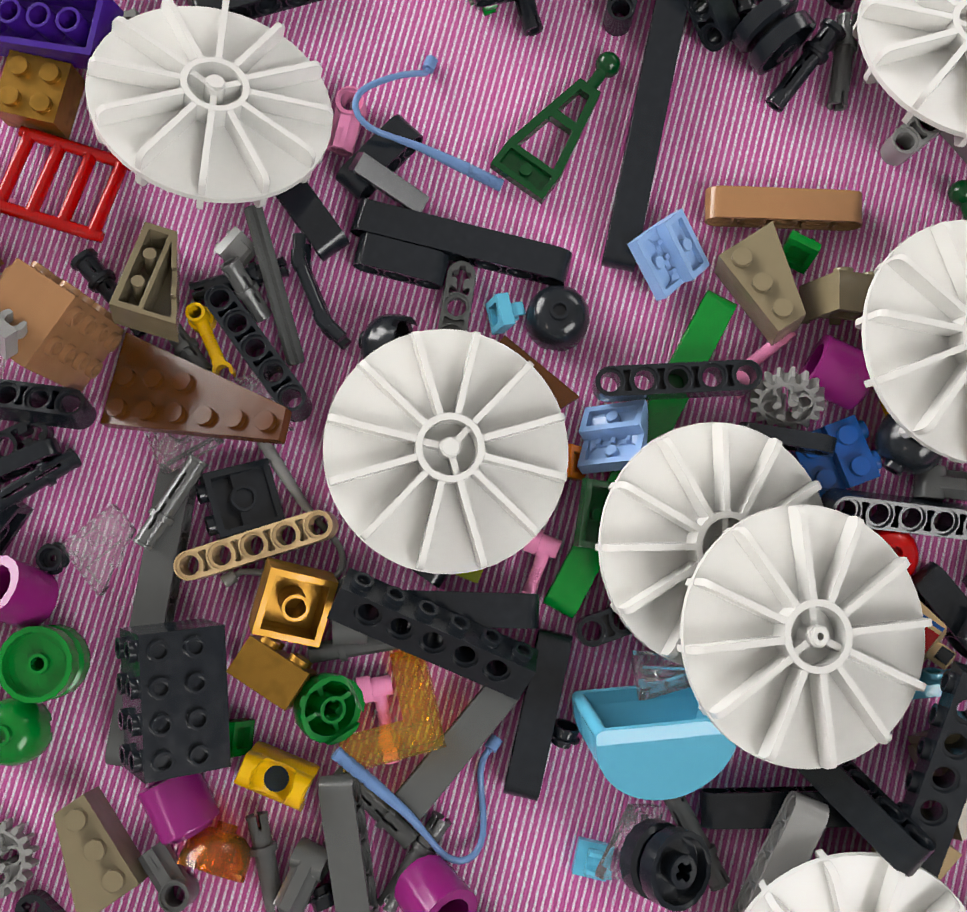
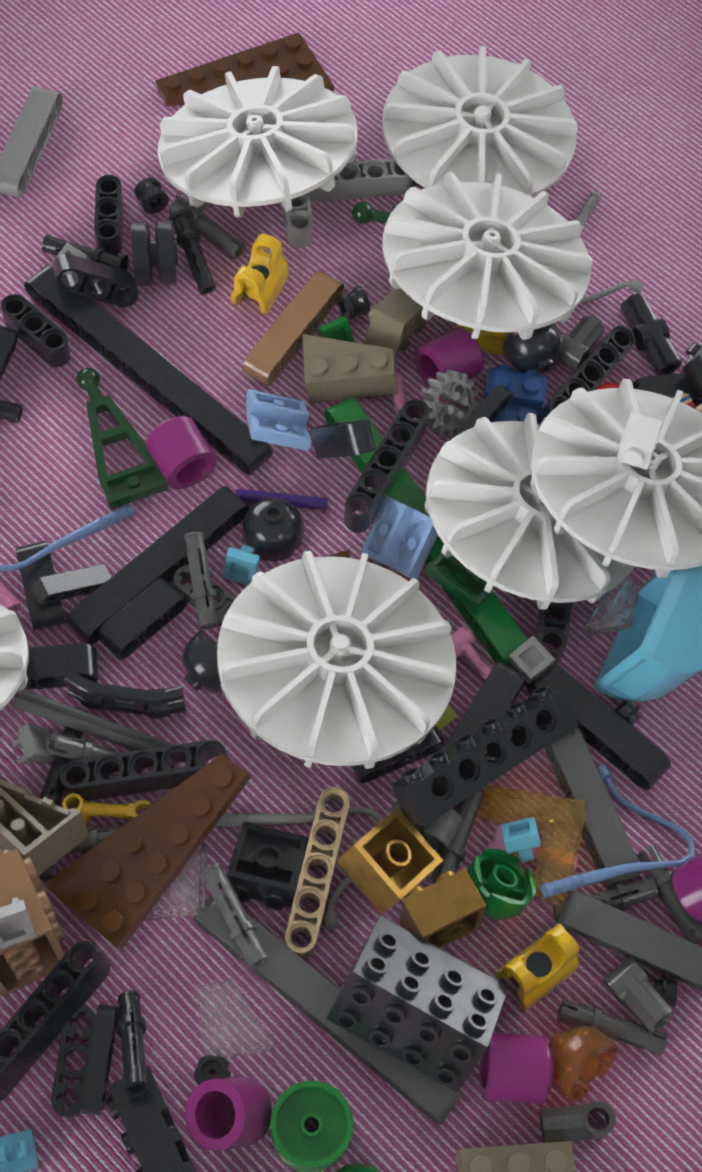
camera: 65 degrees left, 20 degrees down
(379, 704) = (521, 838): none -> medium azure tile
(431, 315) = (202, 593): none -> dark grey pin
(559, 622) = (531, 659): none -> light grey tile
(577, 190) = (181, 452): none -> magenta piece
(594, 307) = (297, 500): none -> dark purple bar
(677, 326) = (343, 439): none -> black beam
(819, 145) = (264, 274): none -> yellow piece
(825, 616) = (639, 440): none -> white brick
(847, 246) = (353, 303): none -> black wheel

